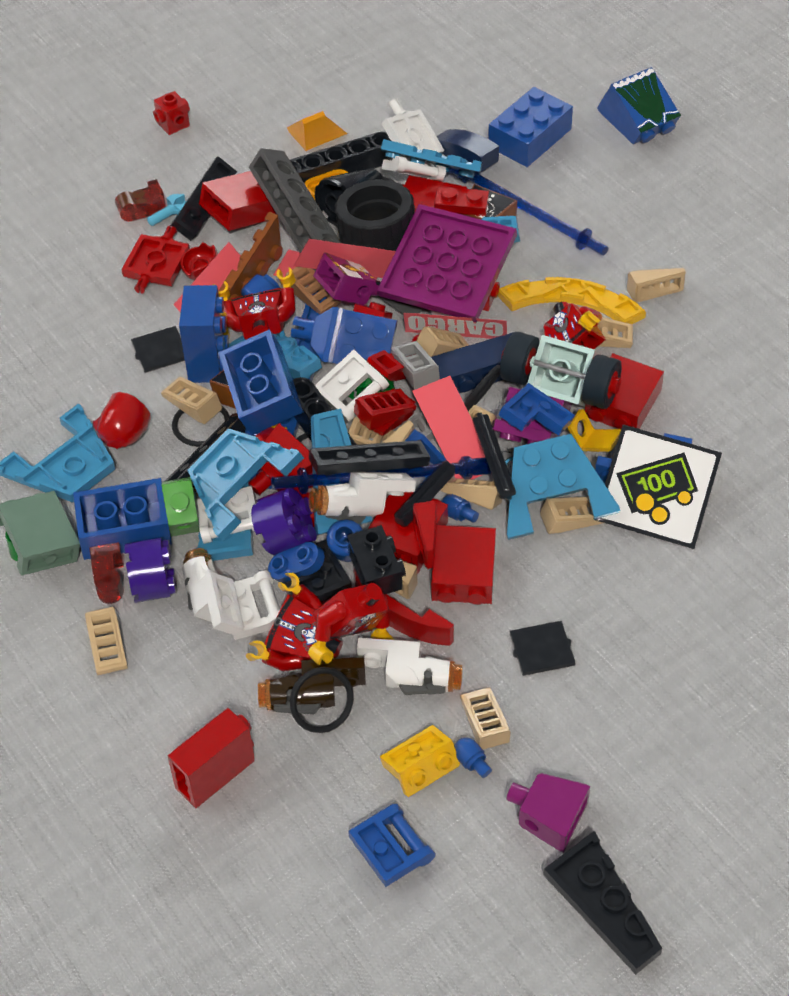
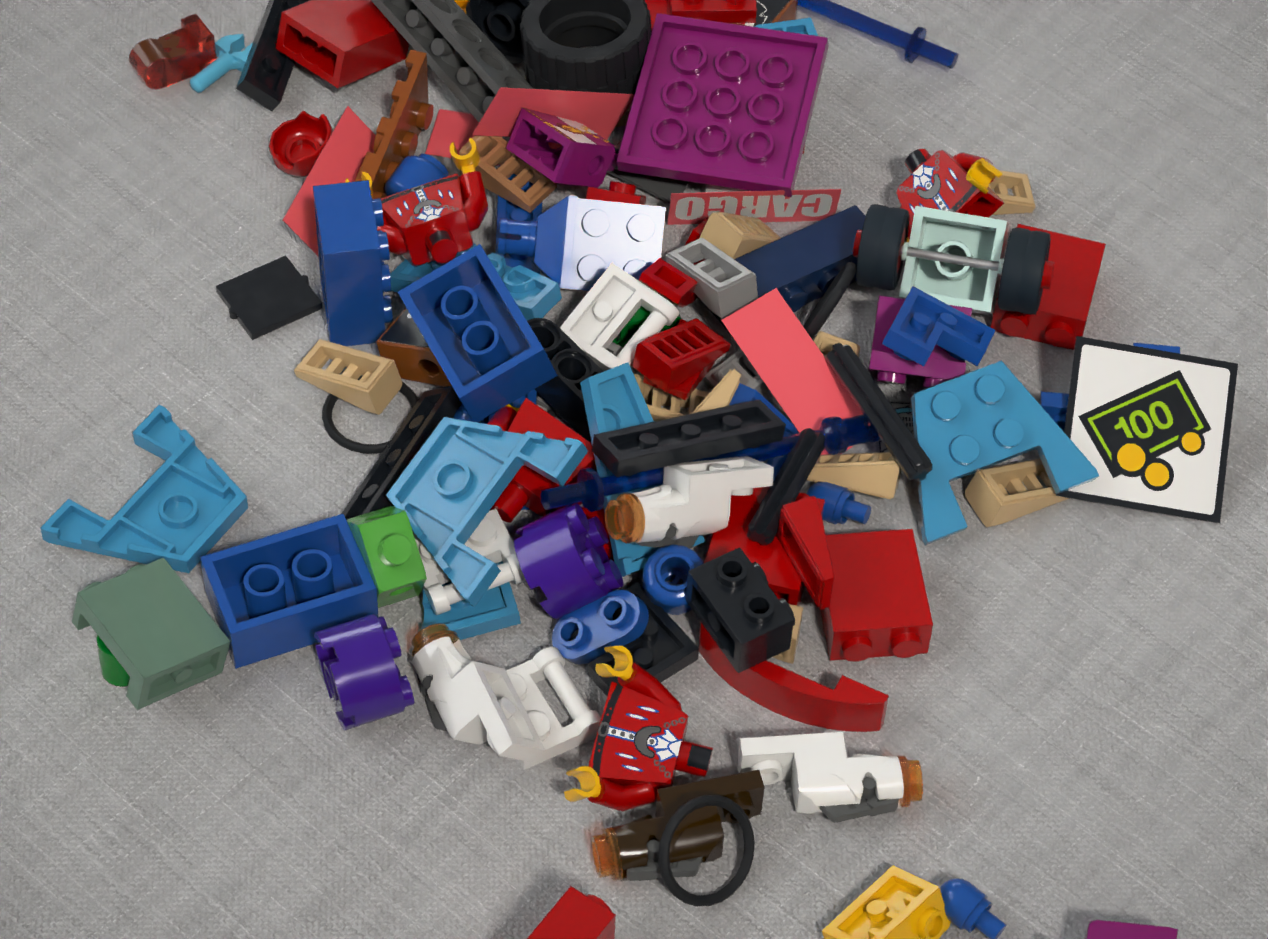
camera: 15 degrees left, 0 degrees up
(100, 623) = (300, 771): tan slope -> none
(106, 578) = (283, 693): clear red leg -> none
(122, 421) = (245, 424): red piece -> none
(155, 260) = (224, 149): red plate -> none
(348, 614) = (723, 702): red torso -> none
(490, 737) = (985, 875): tan slope -> none
(542, 648) = (1028, 714): black piece -> none
(572, 291) = (918, 129): yellow tile -> none
(593, 439) = (1029, 365): yellow bracket -> none
(646, 283) = (1045, 105): tan slope -> none

